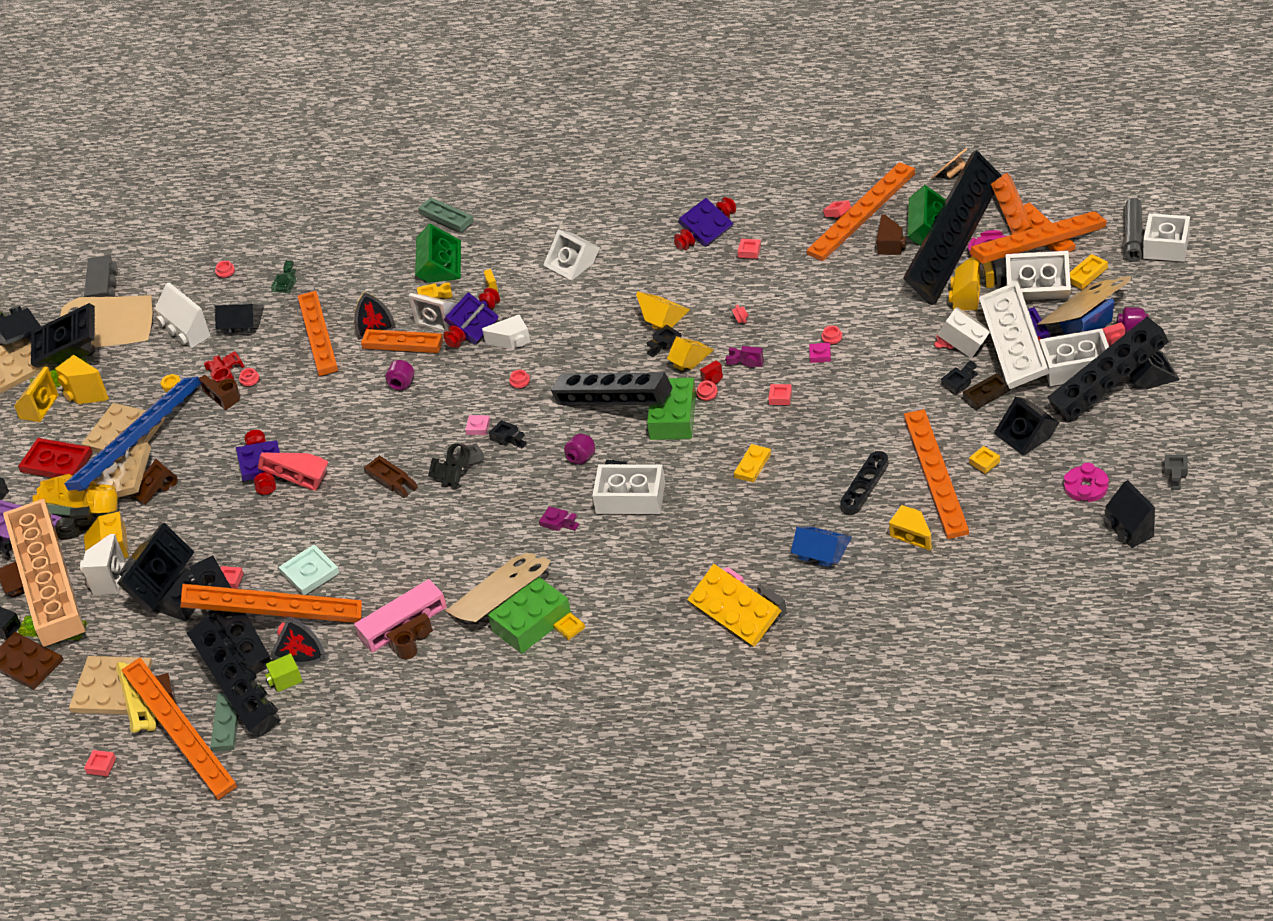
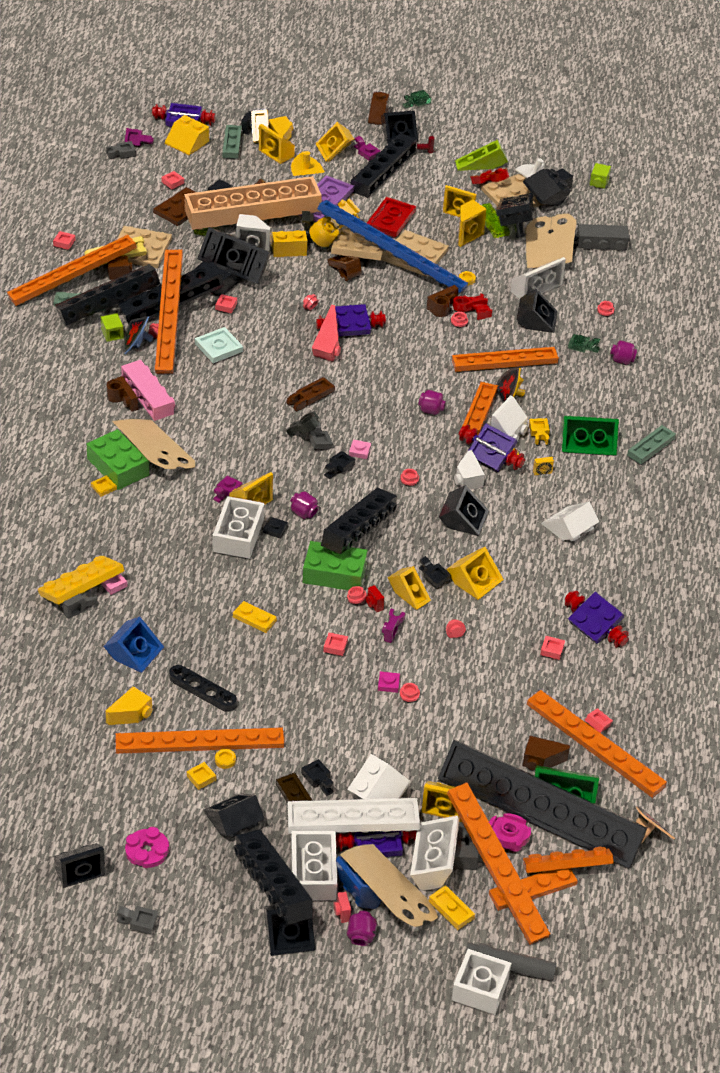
camera: 85 degrees right, 0 degrees up
(224, 502) = (310, 302): none -> coral plate
(302, 246) = (623, 352): none -> magenta head
(570, 330) = (463, 511): none -> black slope
(577, 486) = (256, 490): none -> yellow slope
(954, 450) = (225, 758): none -> yellow tile

